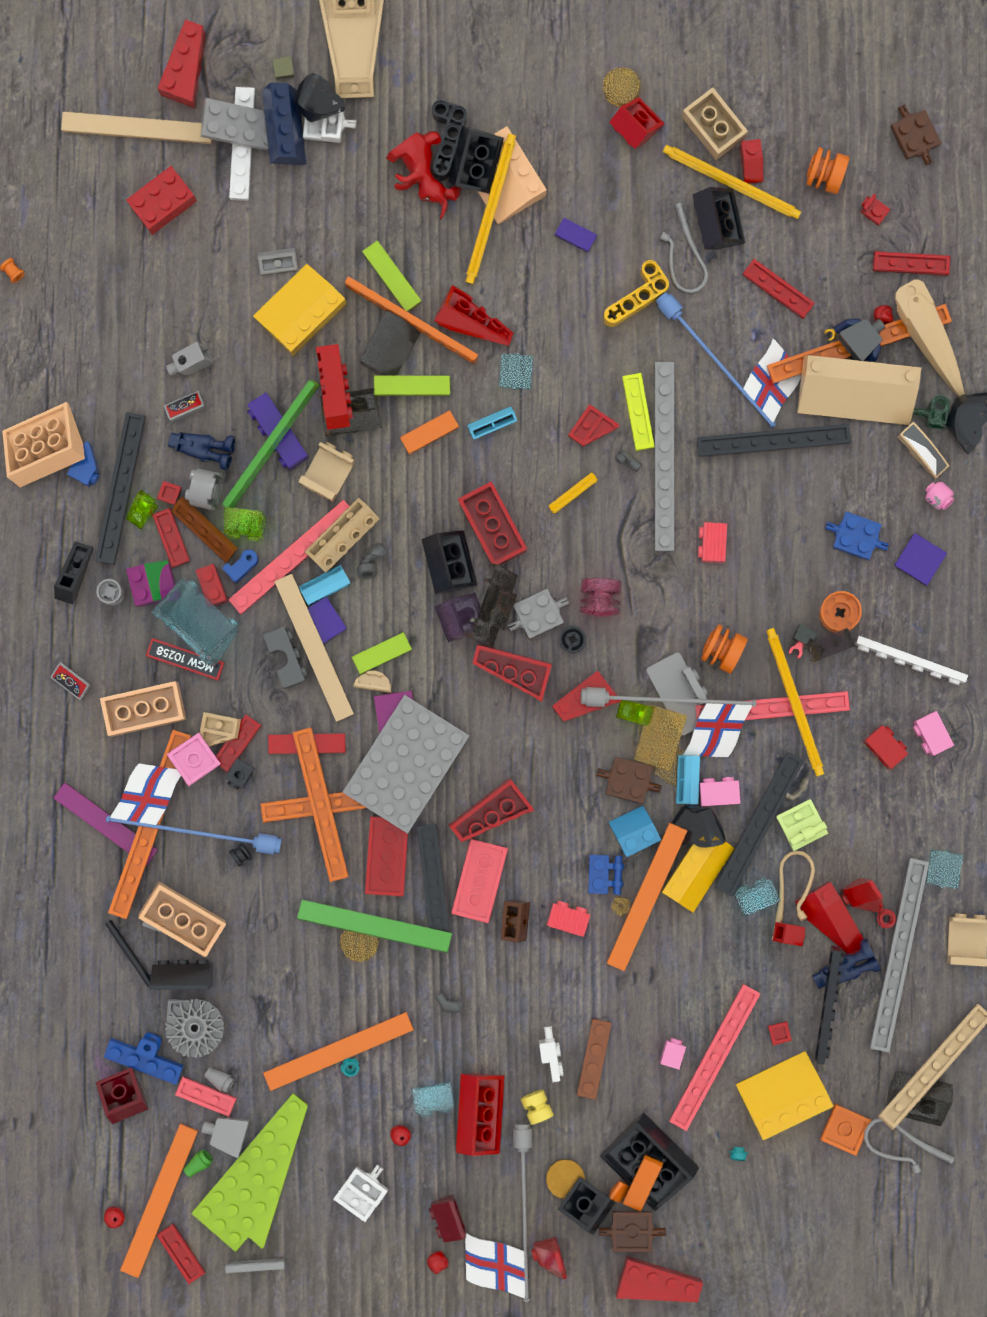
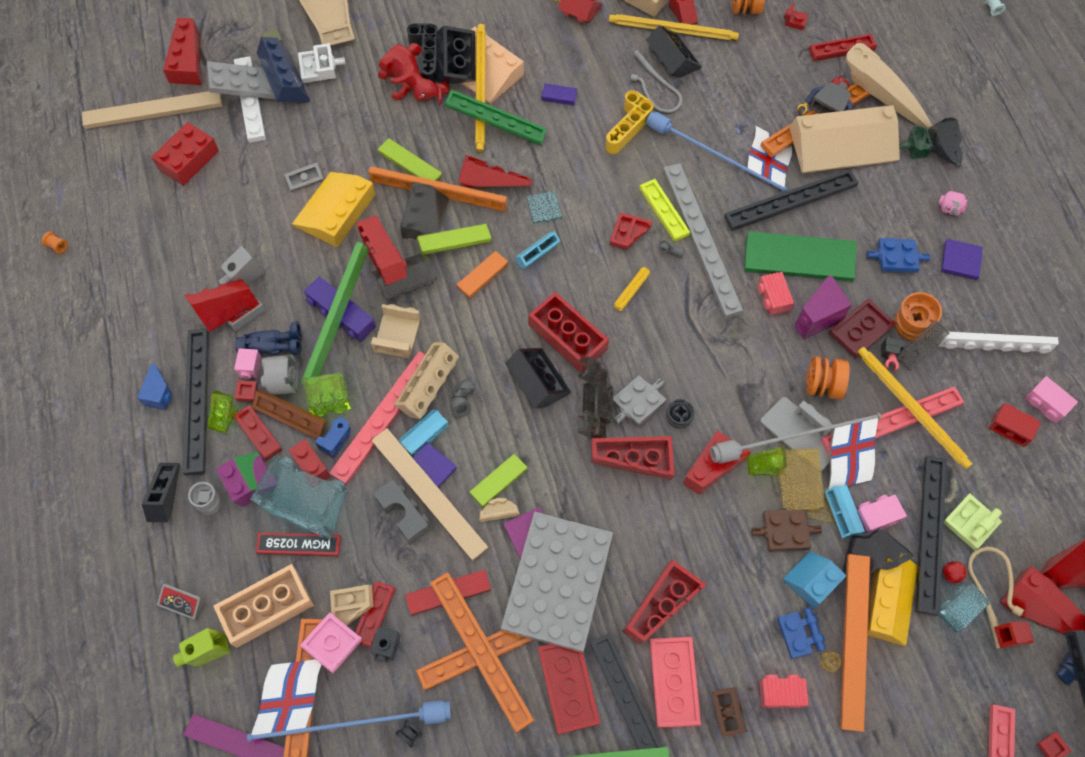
camera: 20 degrees left, 20 degrees down
(42, 445) = (107, 380): light nougat slope -> none
(82, 730) = (202, 648): none -> lime torso
(166, 394) = (221, 303): none -> red wedge
(176, 465) = (248, 363): none -> bright pink brick
(317, 103) = (304, 50): black piece -> none
(456, 616) = (562, 423): clear purple slope -> none
(495, 252) = (495, 117): none -> green tile
(600, 596) = (693, 364): clear pink wheel -> none
(749, 577) = (823, 309): none -> magenta slope
(755, 509) = (800, 256): none -> green arch
(763, 864) = (954, 572): none -> red piece
(778, 288) = (744, 90): red tile -> none
(784, 604) = (862, 327): none -> dark red plate
(923, 450) = (921, 172): slope -> none

